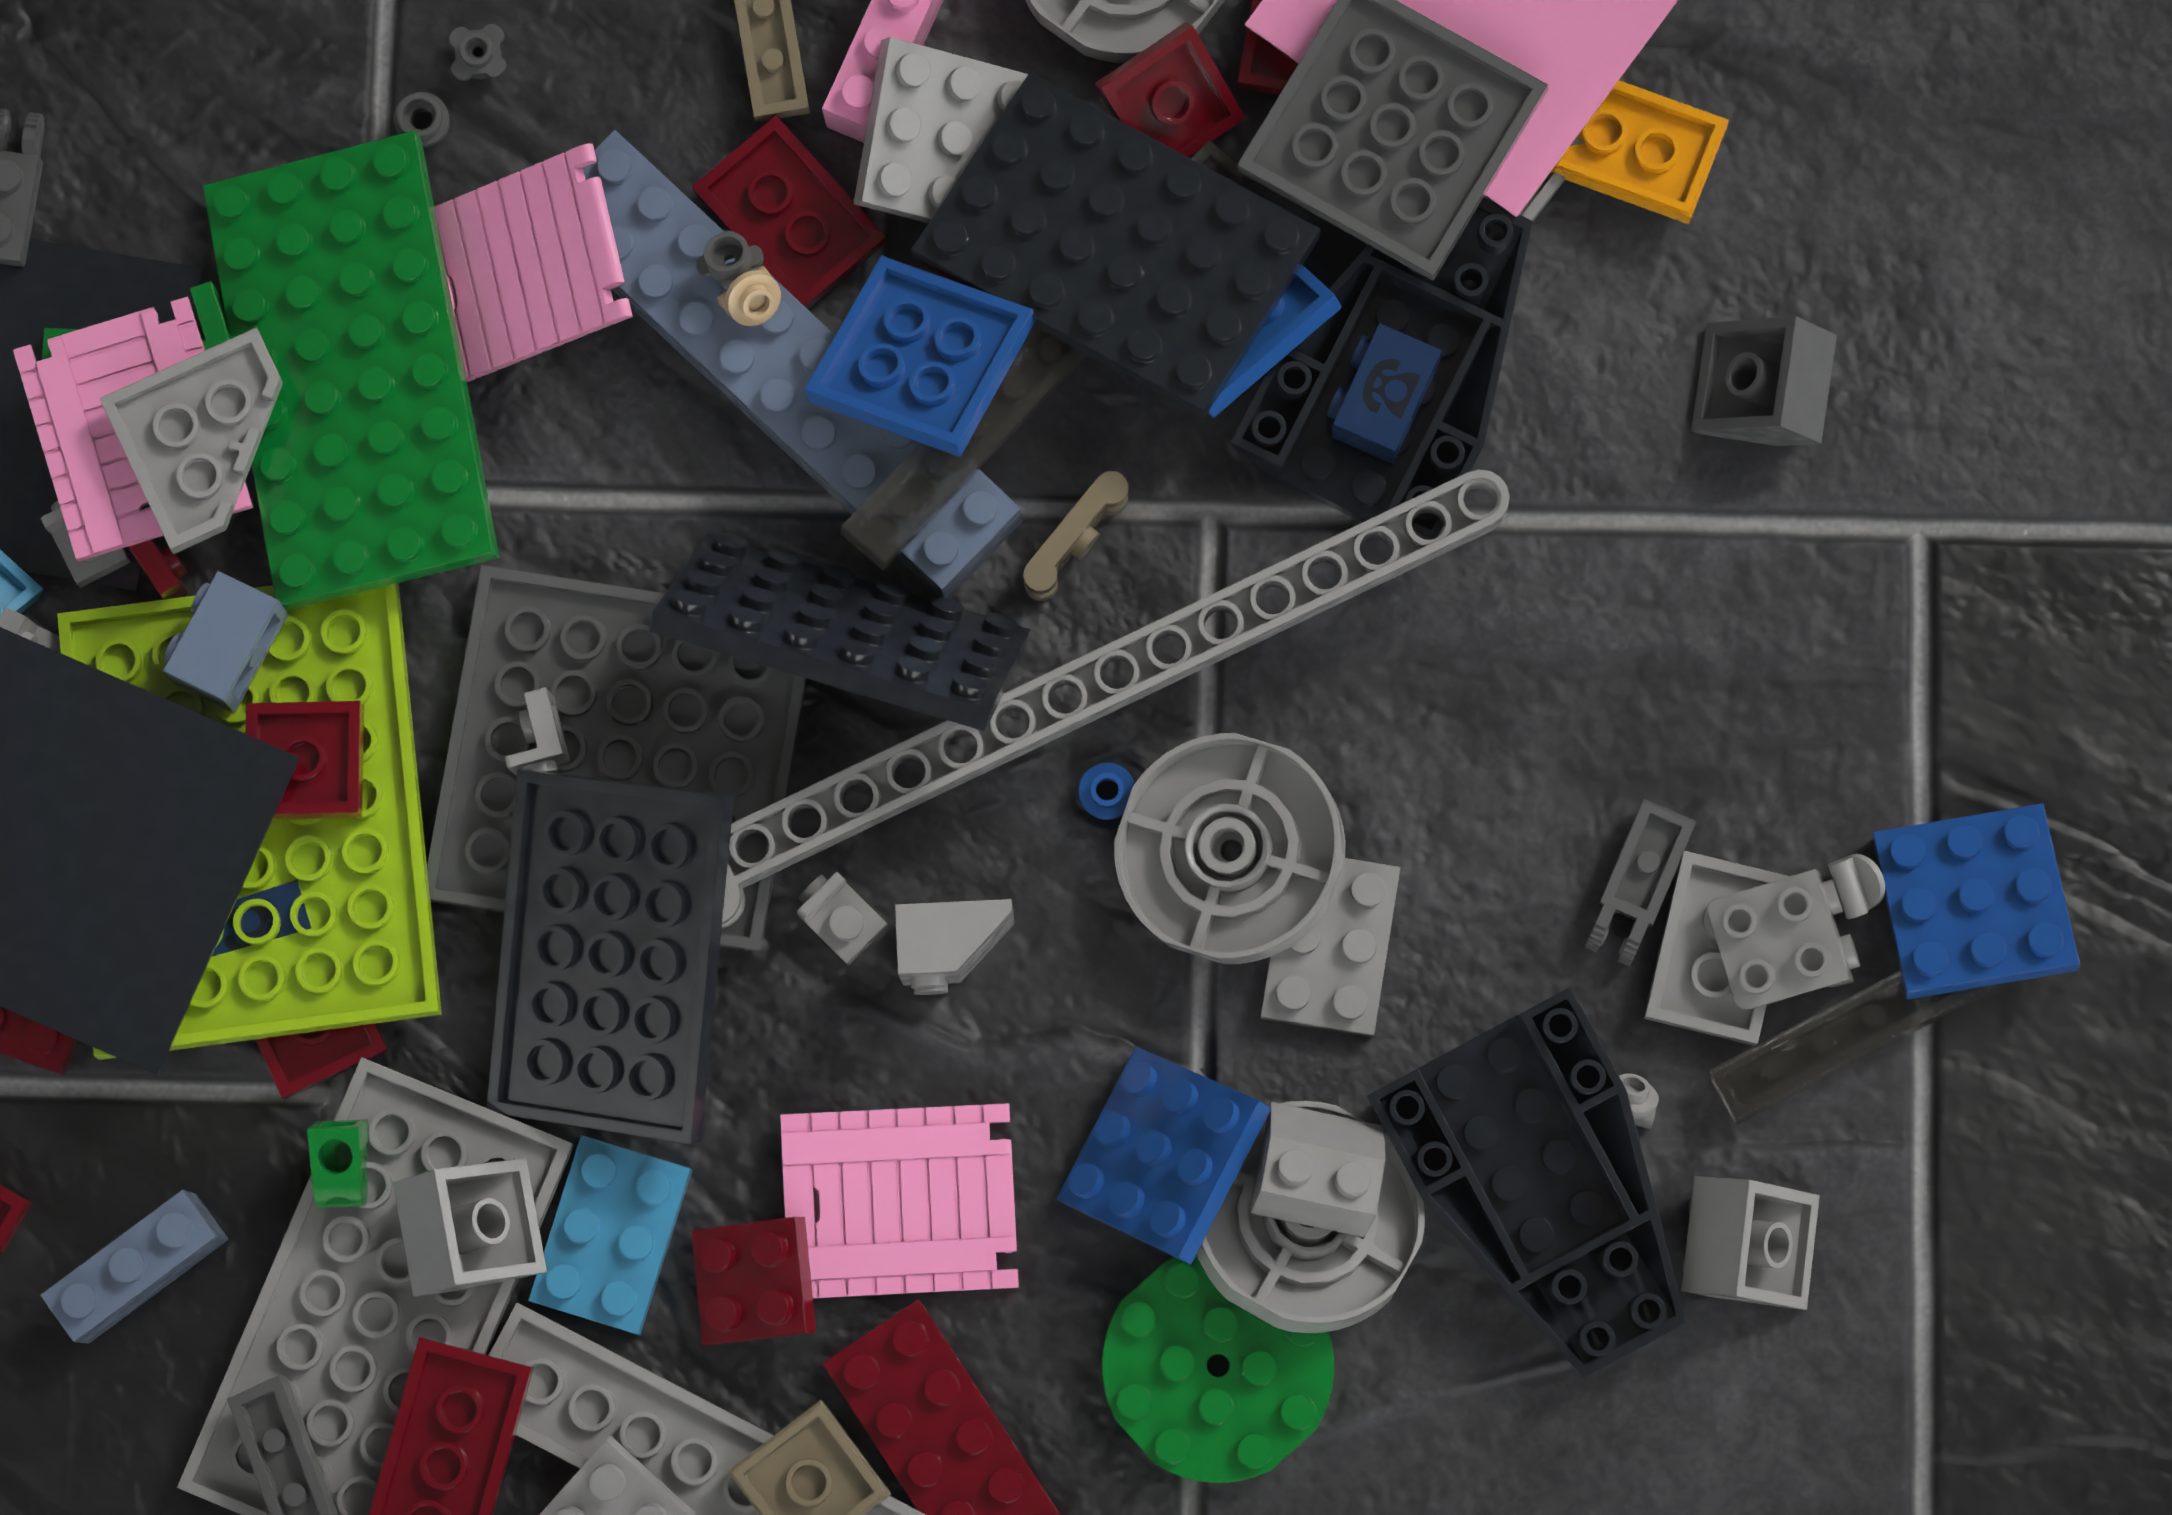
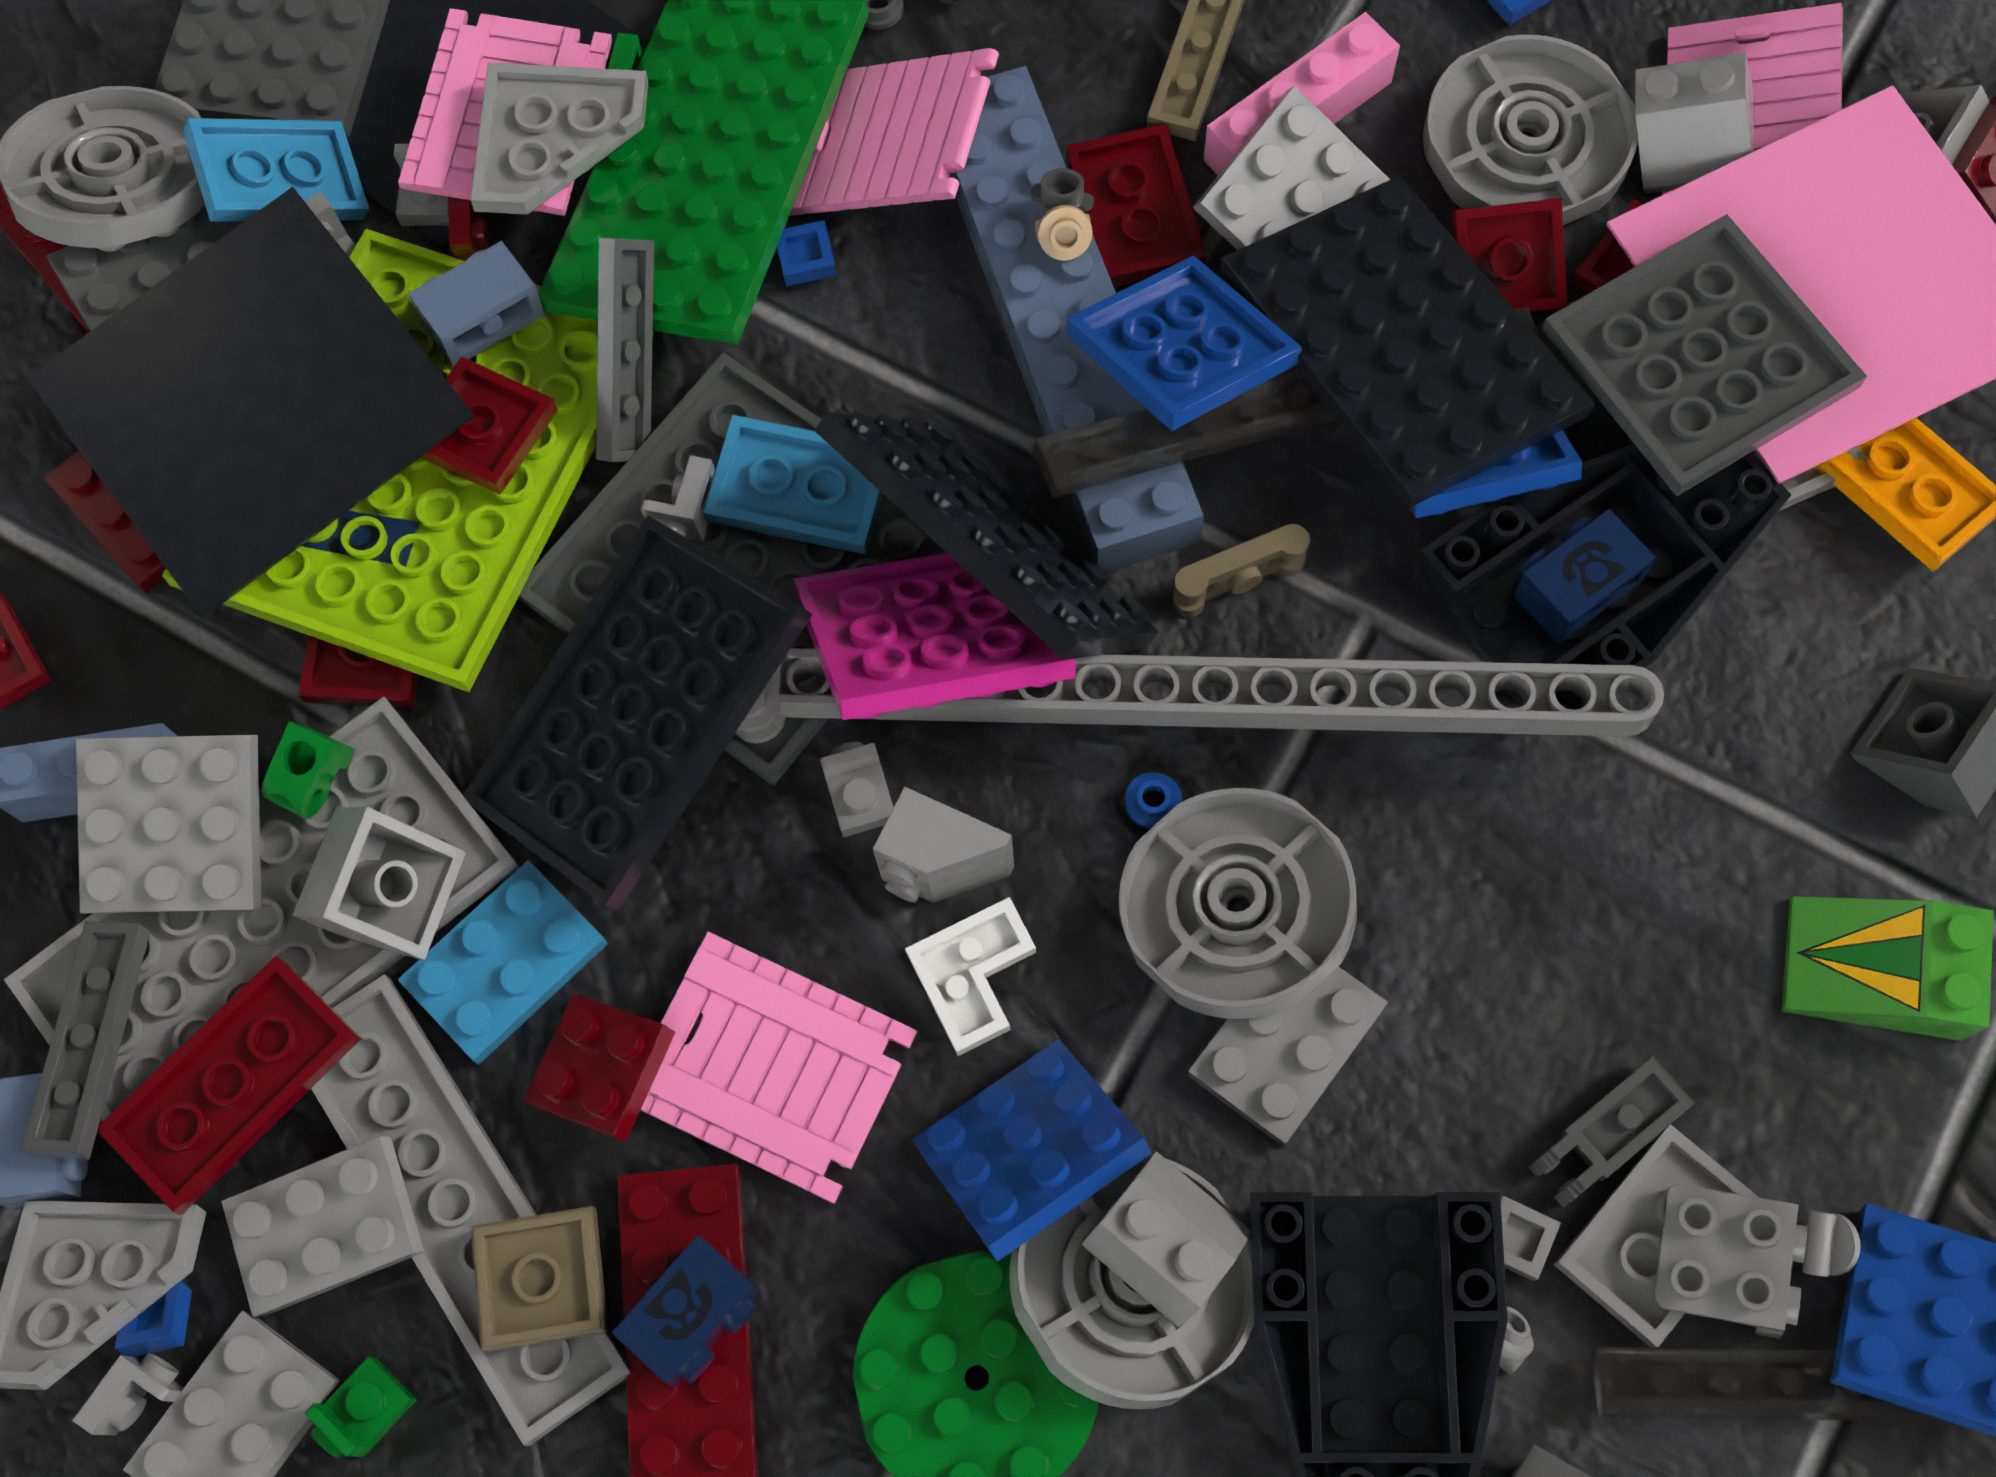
camera: 30 degrees right, 10 degrees down
(249, 1275) = (168, 824): none -> light grey plate
(398, 617) = (624, 347): none -> dark grey plate
(502, 422) = (806, 253): none -> blue plate
(618, 673) = (791, 487): none -> dark azure plate
(829, 766) = (919, 637): none -> dark pink plate
(954, 1441) = (688, 1313): none -> dark blue brick
(1014, 1033) = (955, 972): none -> white plate
(1609, 1009) = (1526, 1238): none -> light grey plate
(1802, 613) = (1890, 964): none -> bright green slope

